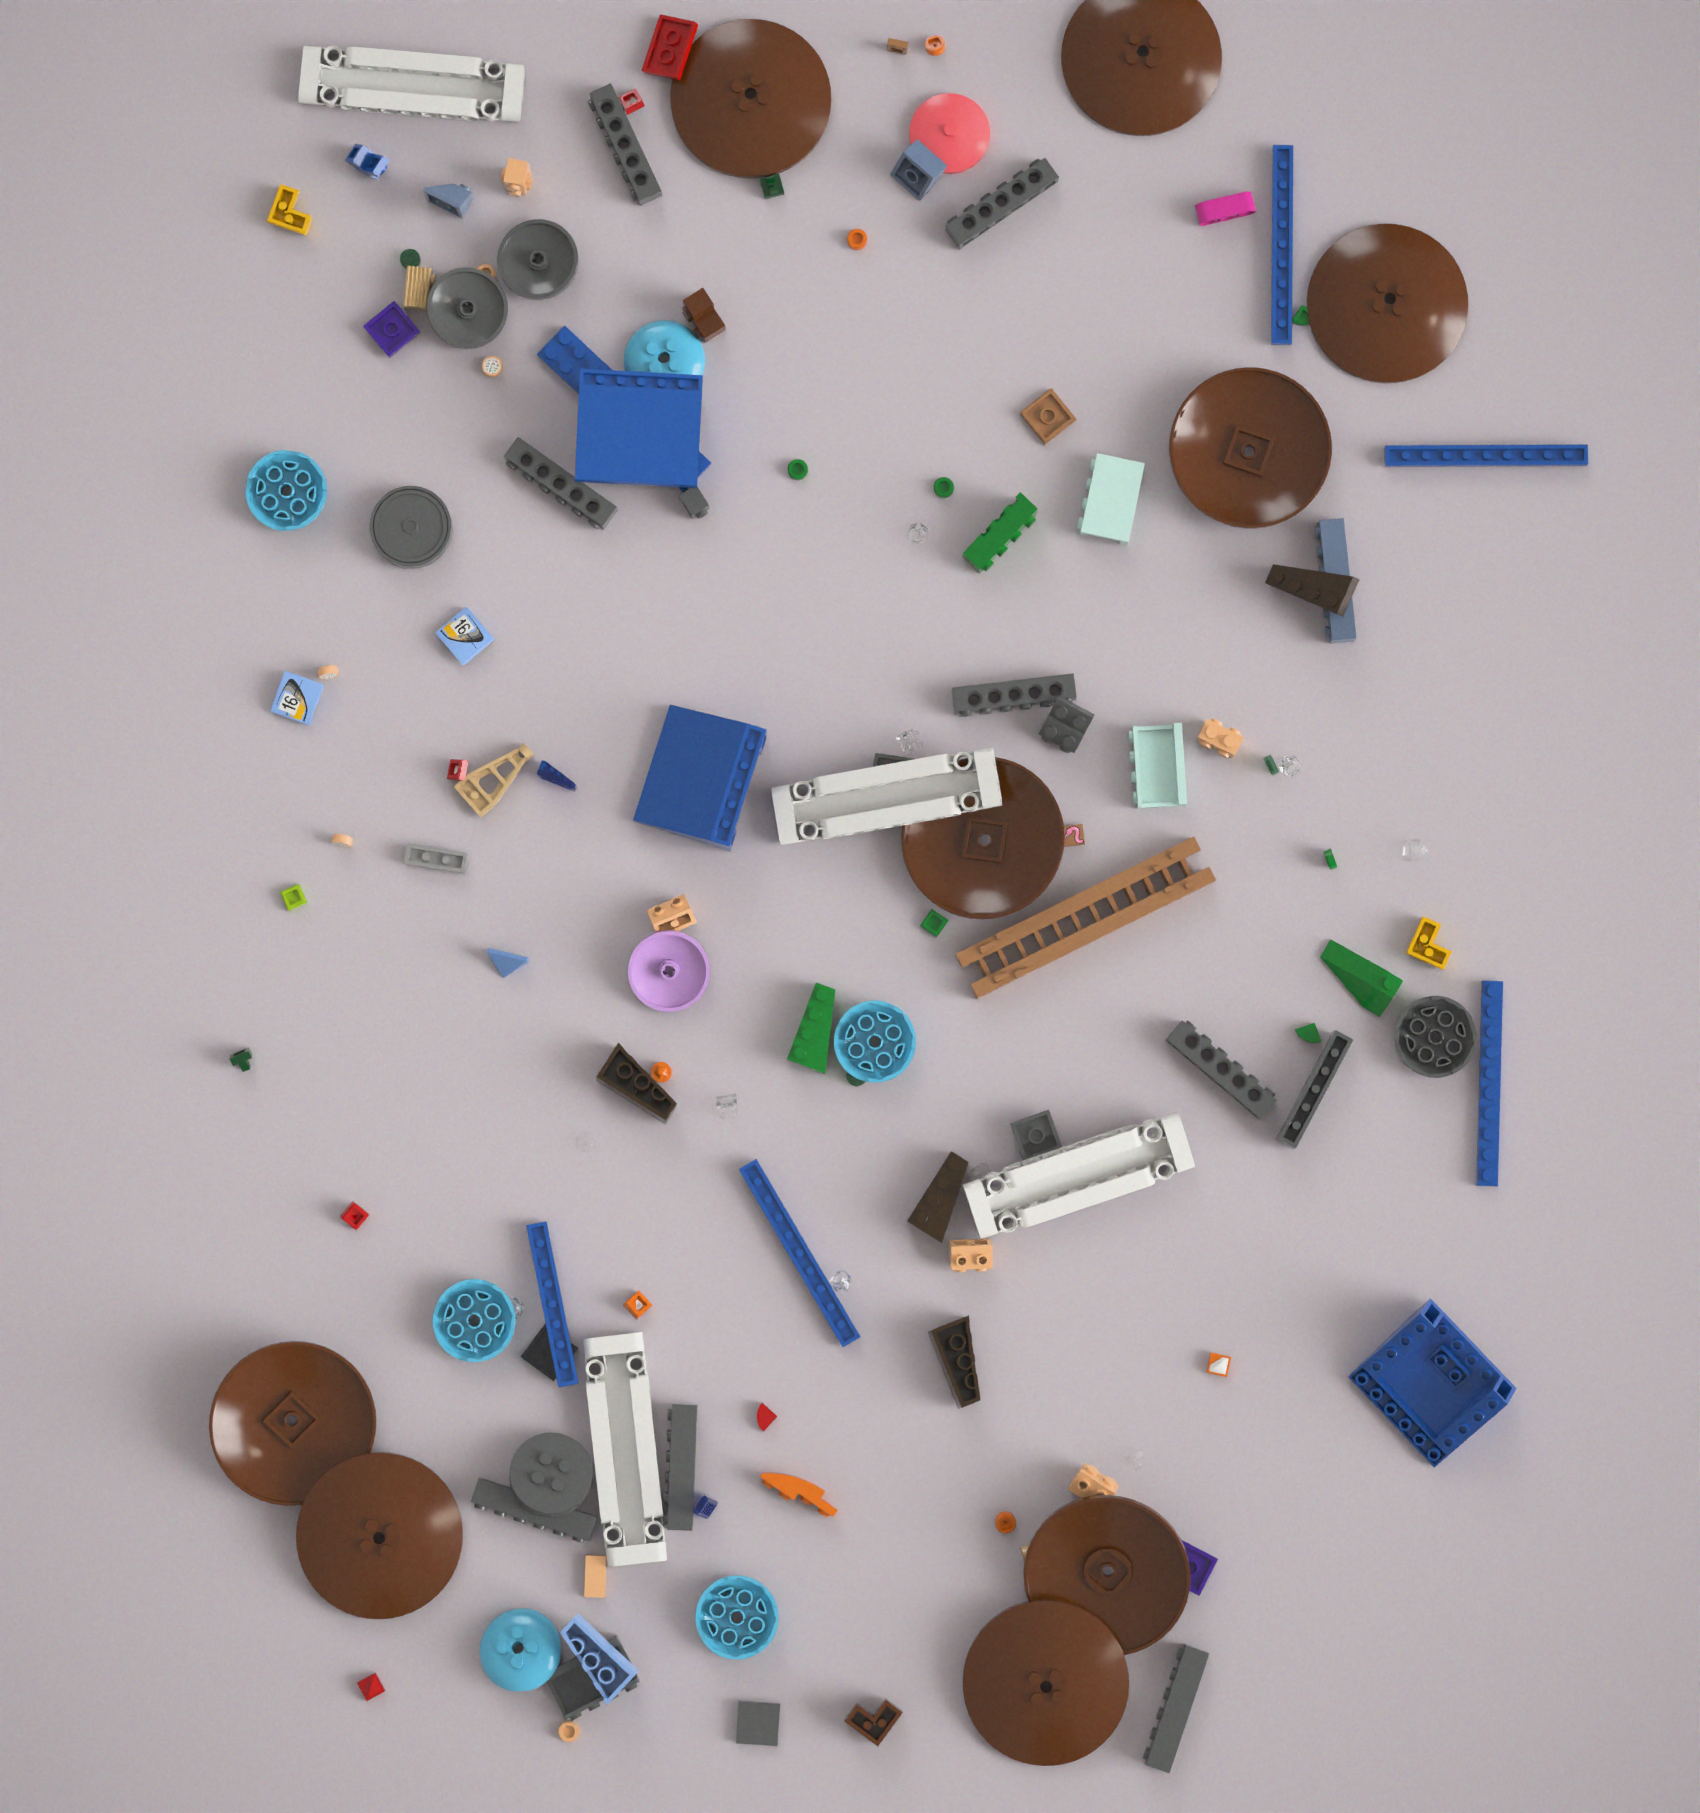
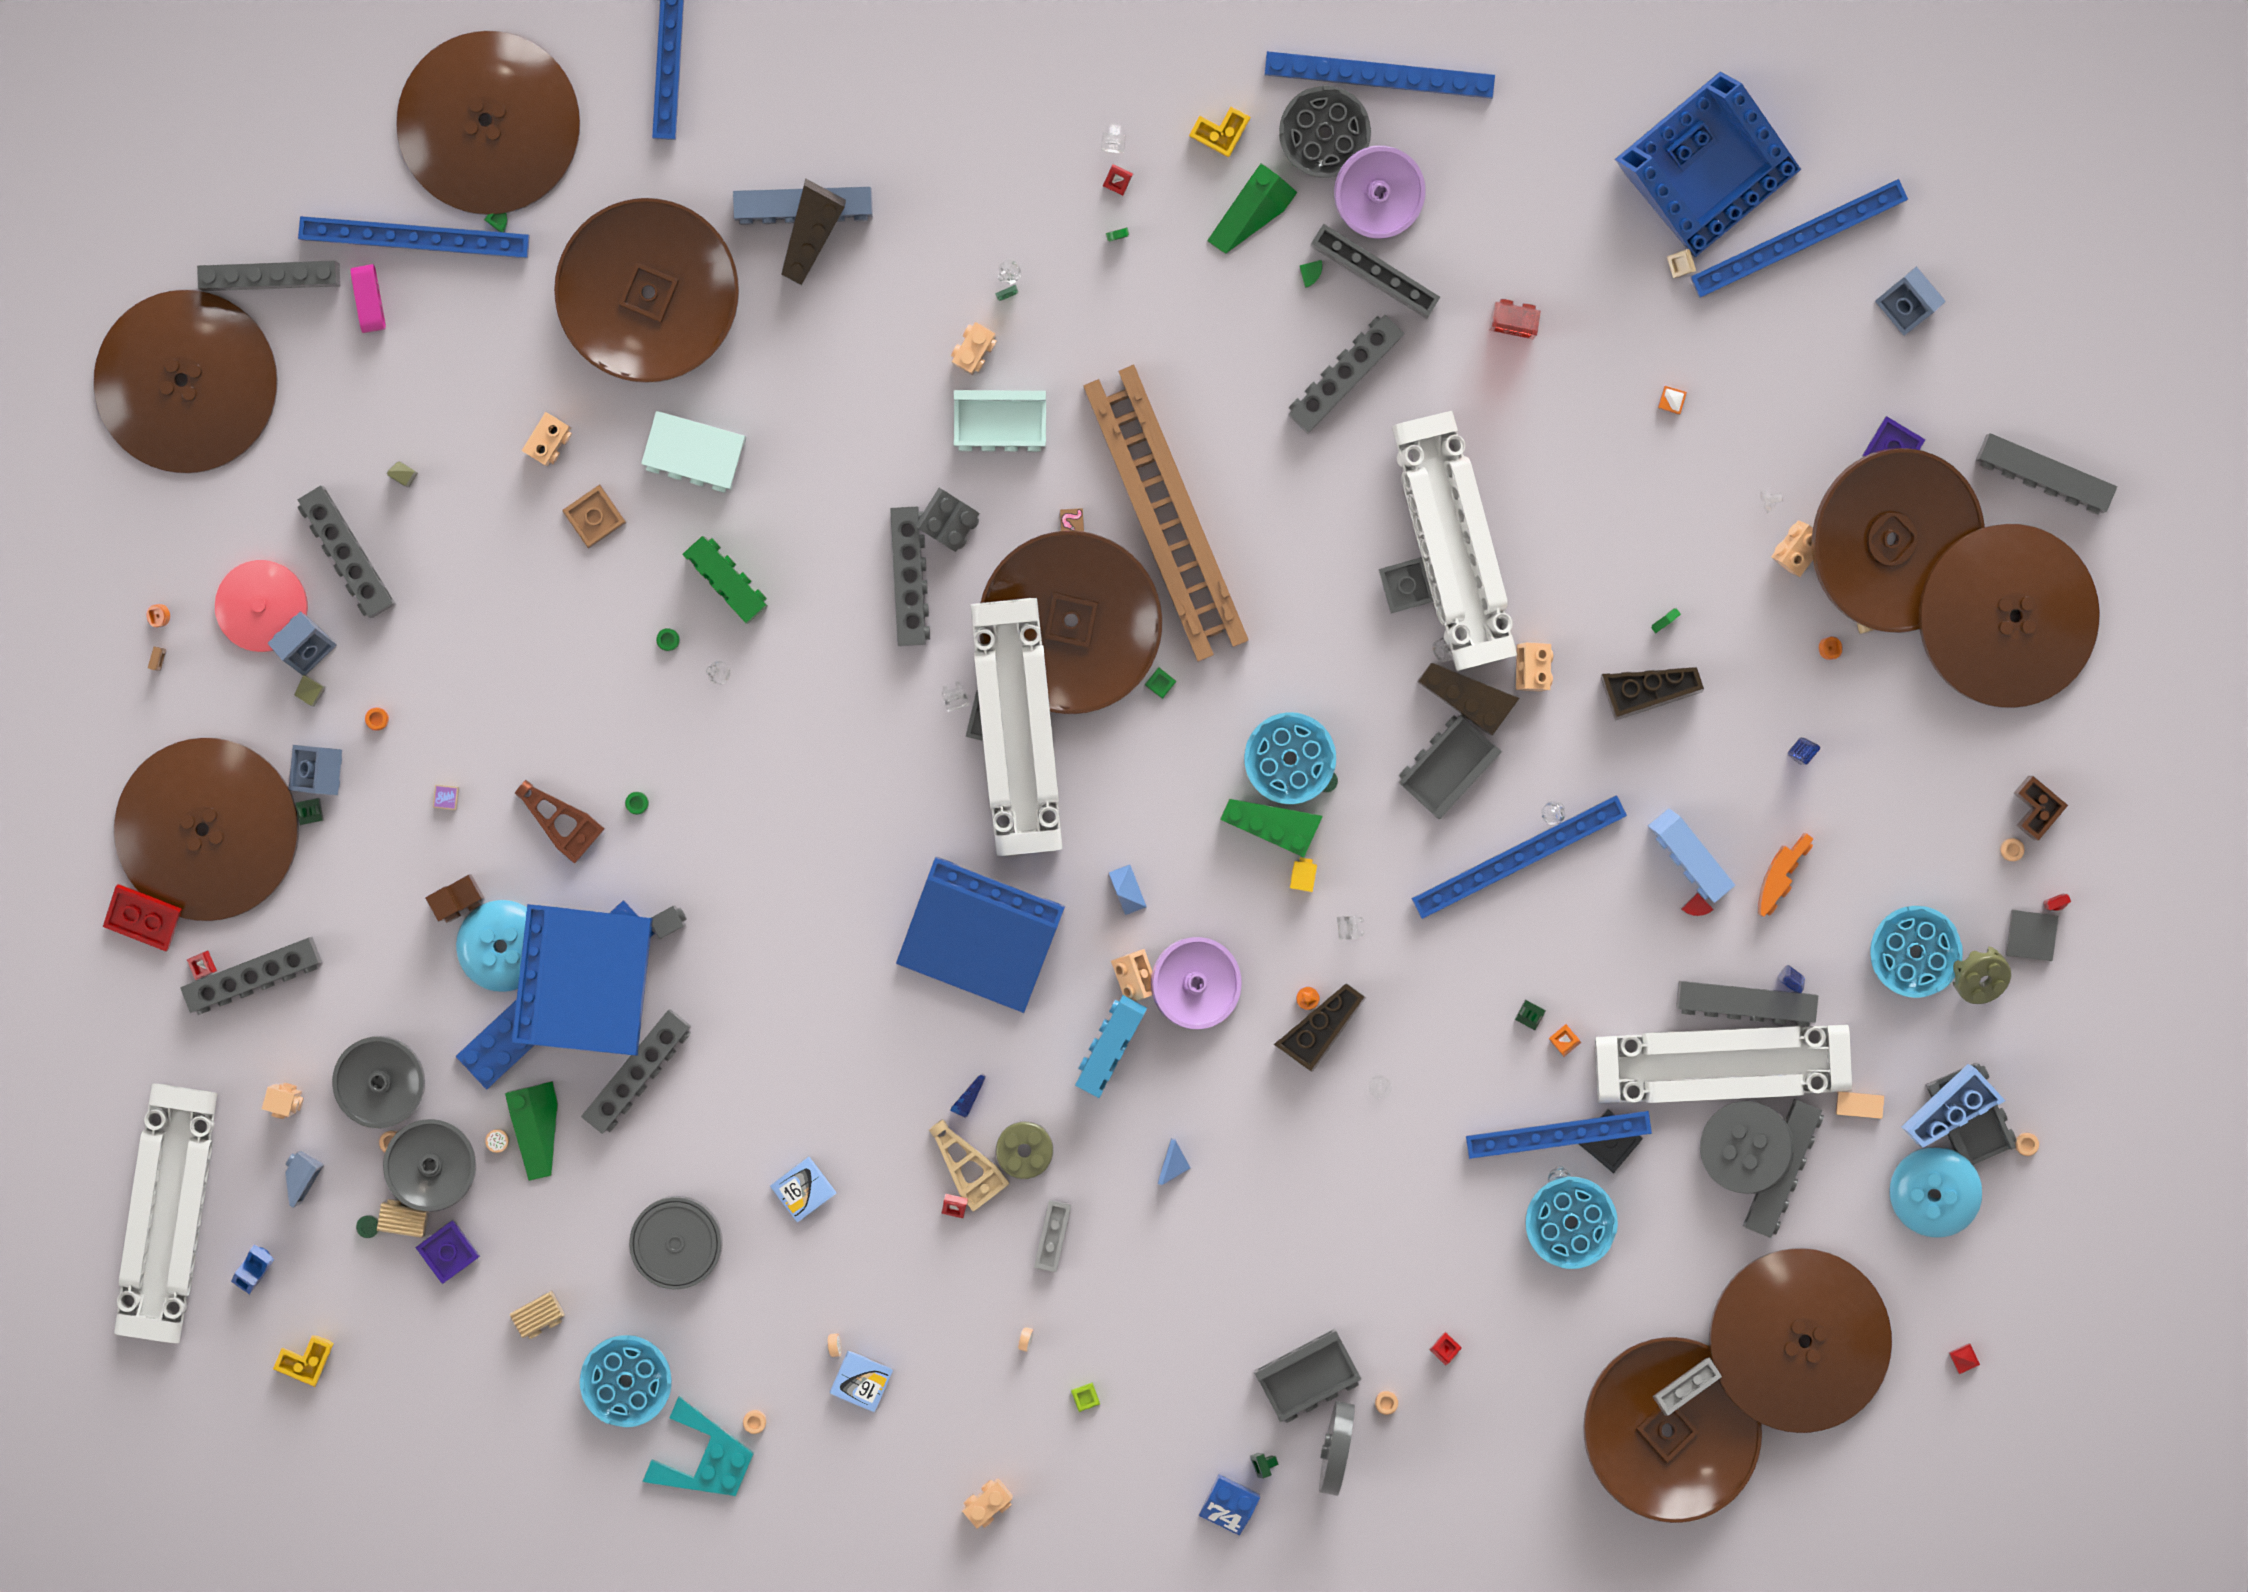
camera: 80 degrees left, 5 degrees up
(199, 821) = (992, 1499): none -> light nougat brick
(204, 1031) = (1229, 1504): none -> blue slope
(216, 580) = (721, 1465): none -> teal wing
(255, 606) = (754, 1422): none -> light nougat tile
(260, 1119) = (1336, 1448): none -> dark grey brick
(303, 1166) = (1386, 1402): none -> light nougat tile
(323, 1094) = (1308, 1376): none -> dark grey panel
(332, 1433) = (1687, 1386): none -> light grey plate
(340, 410) = (537, 1314): none -> tan brick
(509, 397) = (534, 1123): none -> green wedge
(523, 836) = (1024, 1133): none -> olive plate
(608, 897) = (1110, 1046): none -> dark azure wedge
(658, 1272) = (1530, 1014): none -> dark green tile
(727, 1674) = (1977, 965): none -> olive plate
(748, 905) = (1127, 889): none -> medium blue slope
(765, 423) = (579, 839): none -> copper plate
(771, 1060) = (1303, 875): none -> yellow brick
(788, 1744) = (2057, 903): none -> red tile
(792, 303) = (445, 797): none -> medium lavender tile
(808, 188) = (315, 770): none -> sand blue slope
(810, 1408) = (1691, 855): none -> light blue wedge
(834, 1700) = (2012, 849): none -> light nougat tile
(877, 1184) = (1448, 766): none -> dark grey panel
(878, 179) = (309, 690): none -> olive slope
(911, 1502) = (1803, 751): none -> clear blue slope
(1020, 1371) = (1665, 620): none -> green tile
(1073, 247) = (402, 474): none -> olive slope
(1113, 369) = (543, 437): none -> light nougat brick
(1239, 121) = (268, 275): none -> dark grey brick
(1280, 1217) = (1515, 319): none -> clear red slope
(1323, 1574) = (1910, 301): none -> sand blue slope
(1341, 1364) = (1681, 263): none -> tan tile
(1372, 1469) = (1799, 238): none -> blue plate
(1378, 856) = (1117, 179): none -> red tile
(1385, 1089) = (1379, 191): none -> lavender dish

